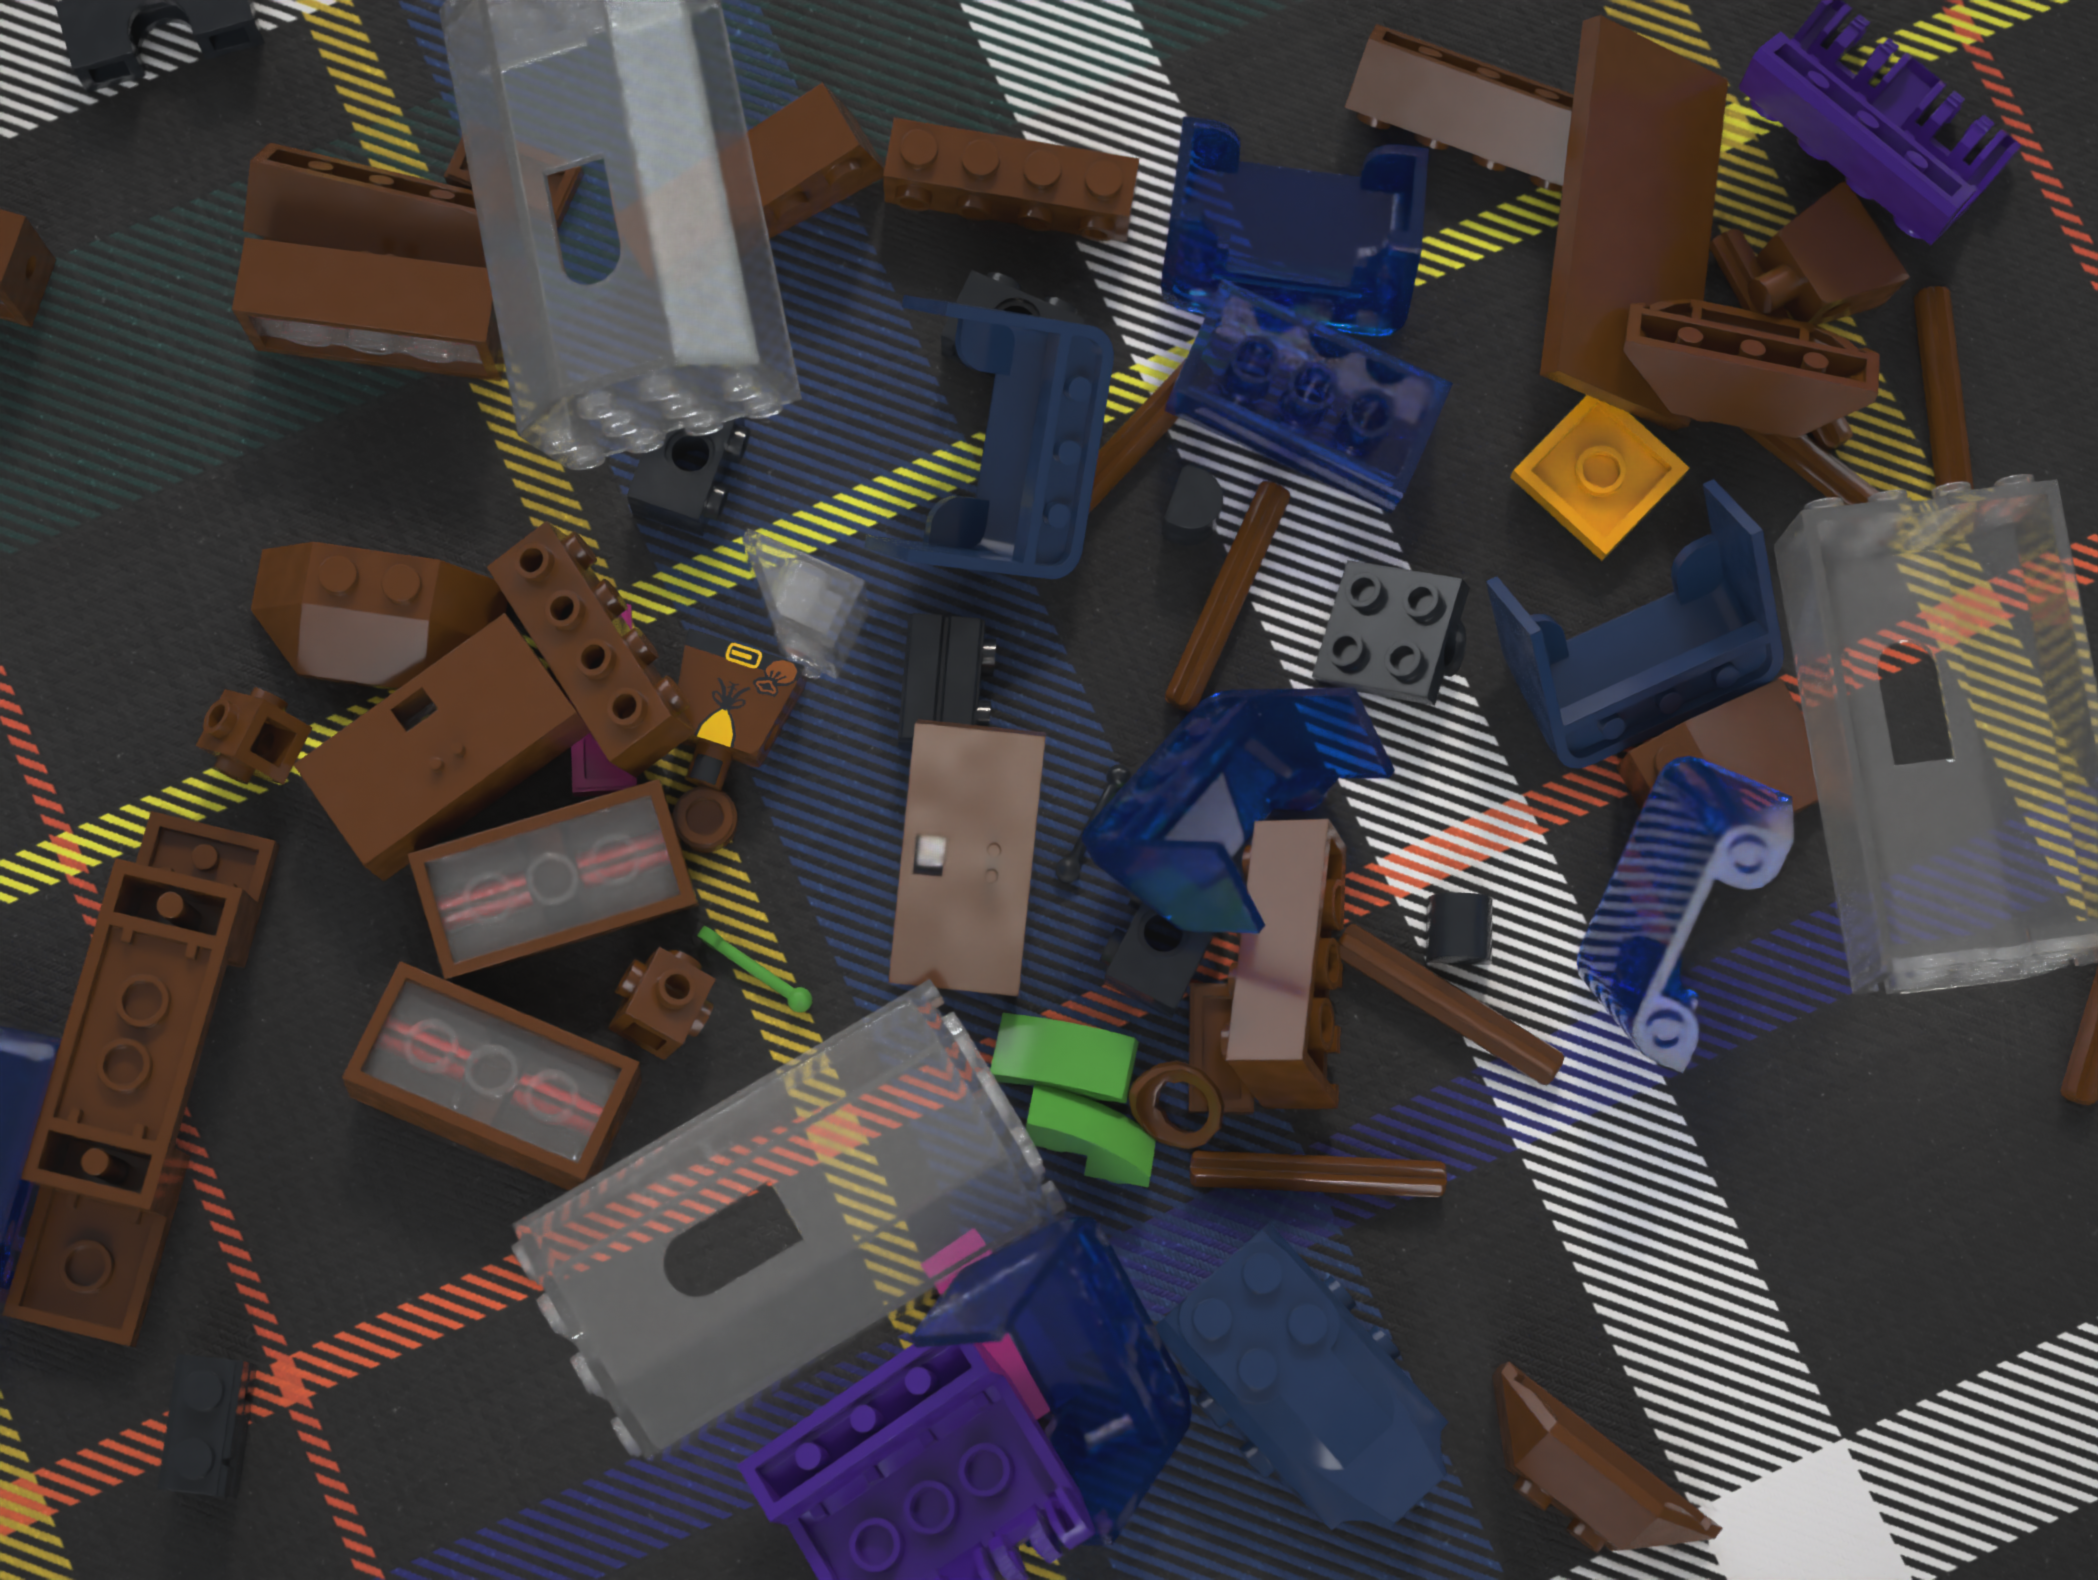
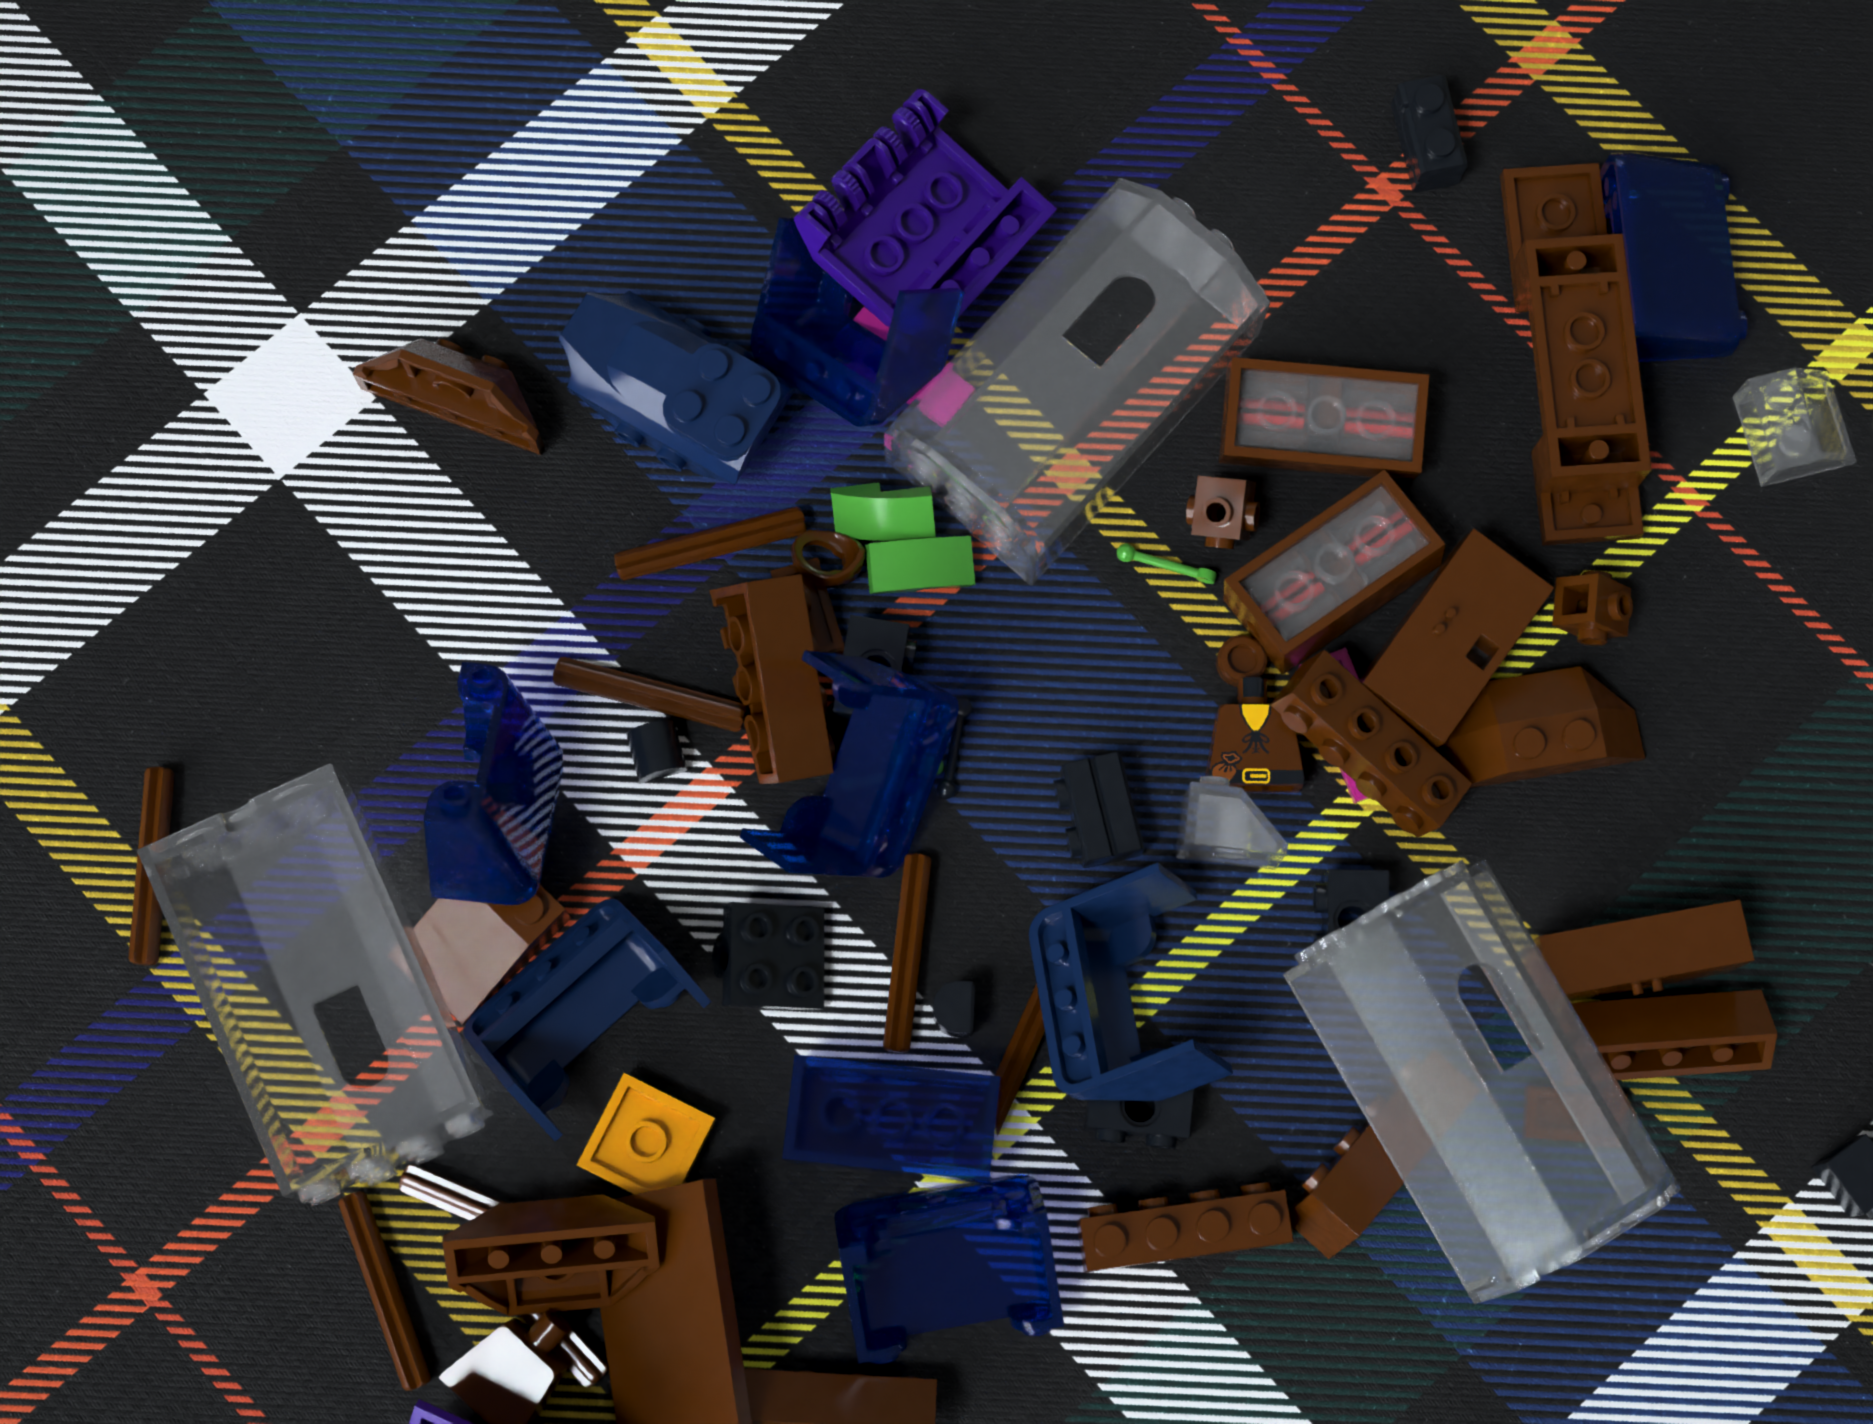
camera: 165 degrees right, 0 degrees up
(967, 857) = (1038, 676): reddish brown brick -> none

